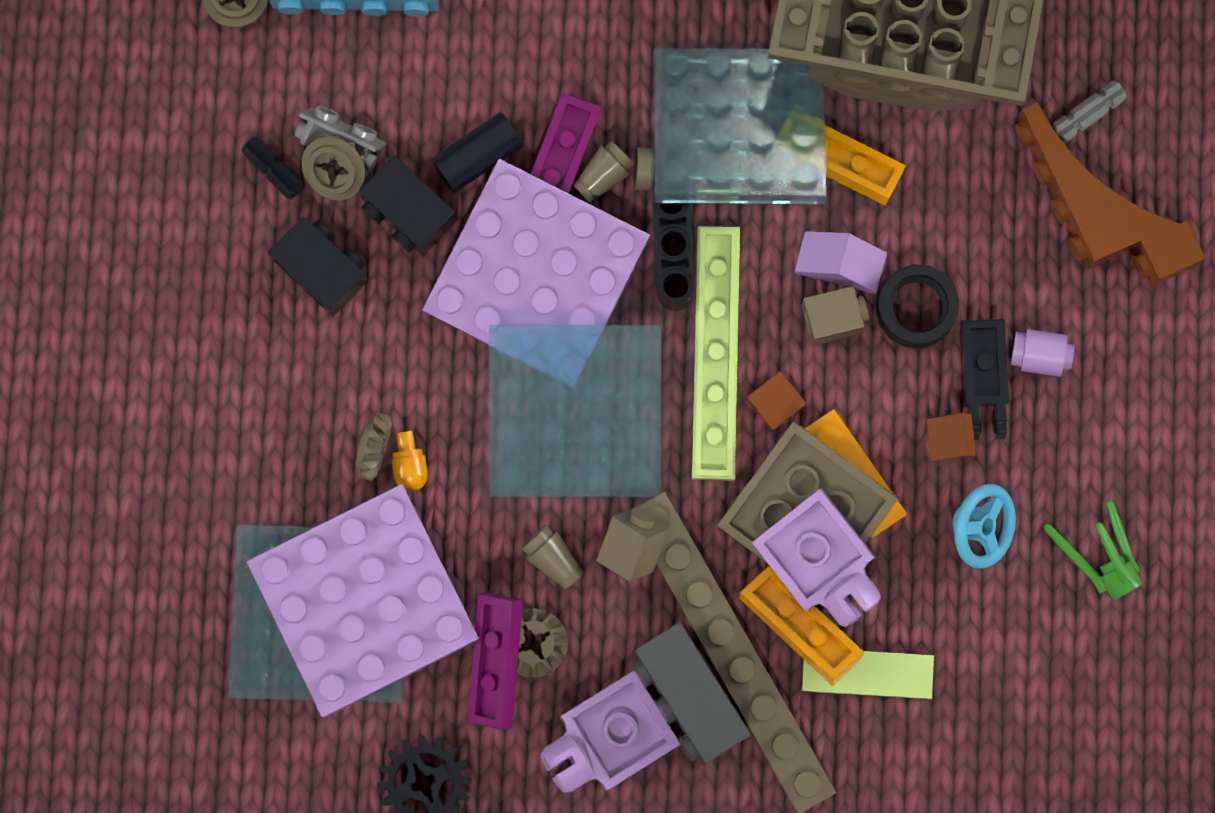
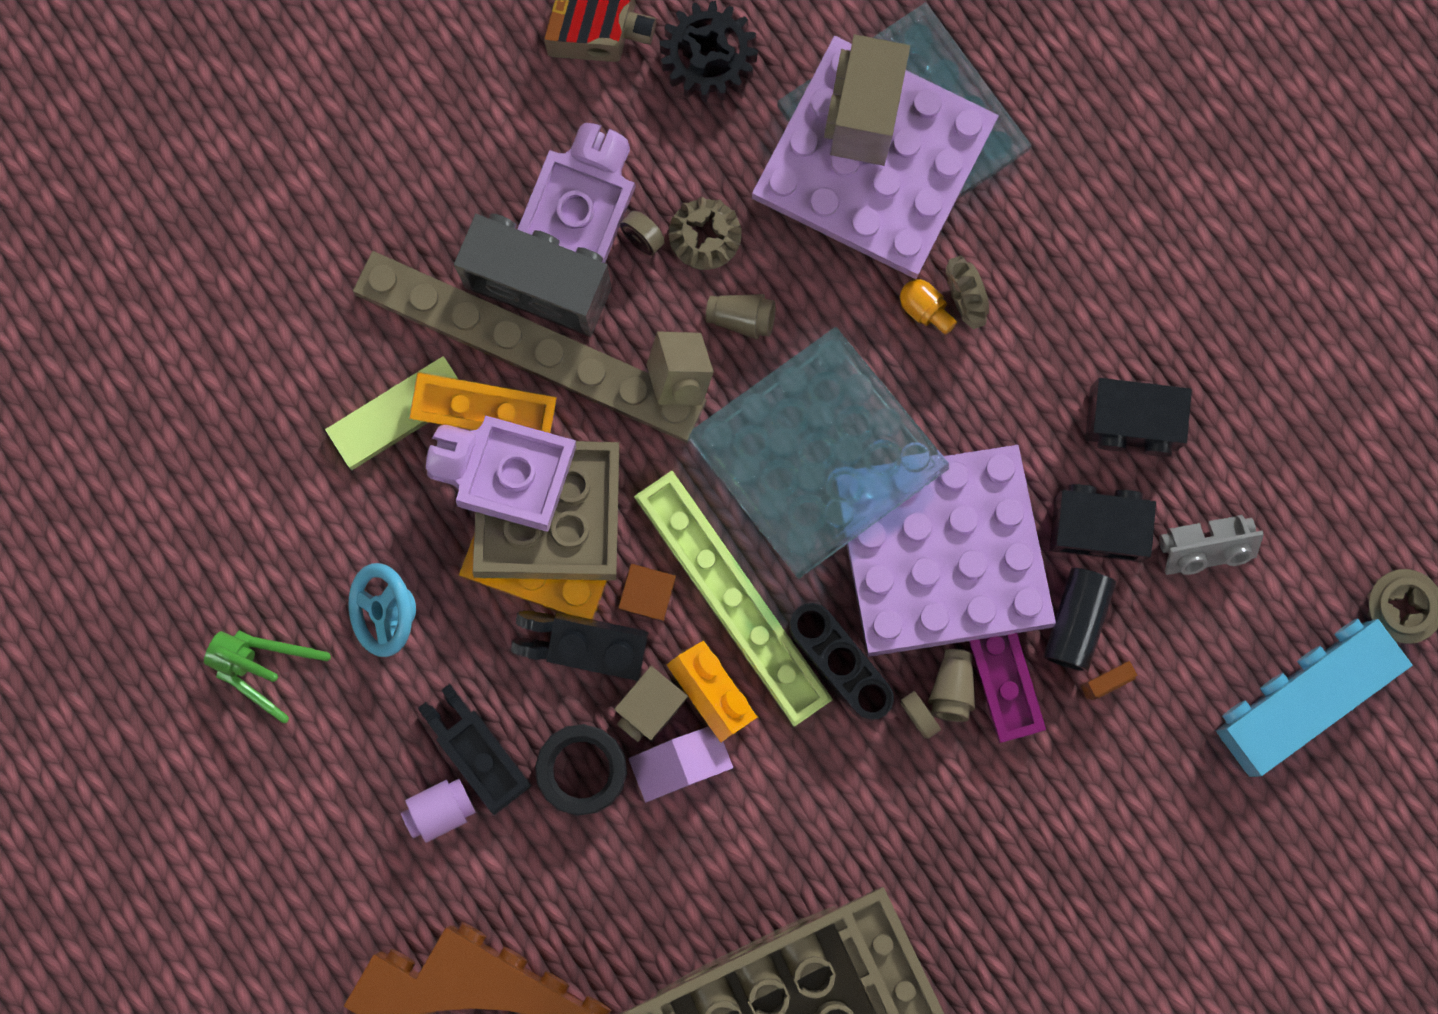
camera: 140 degrees right, 0 degrees up
(277, 173) = (1256, 477): black piece -> none
(322, 176) = (1198, 499): dark tan gear -> none
(345, 631) = (866, 99): none -> dark tan brick
(490, 95) = (1109, 681): none -> dark orange tile
(495, 661) = (725, 188): magenta plate -> none
(579, 670) = (642, 232): none -> dark tan tile
(737, 129) = (863, 809): clear light blue plate -> none
(781, 293) = (712, 691): none -> light orange plate
(852, 397) = (583, 644): none -> black hinge
(860, 166) = (751, 858): light orange plate -> none
(951, 437) = (466, 671): dark orange tile -> none

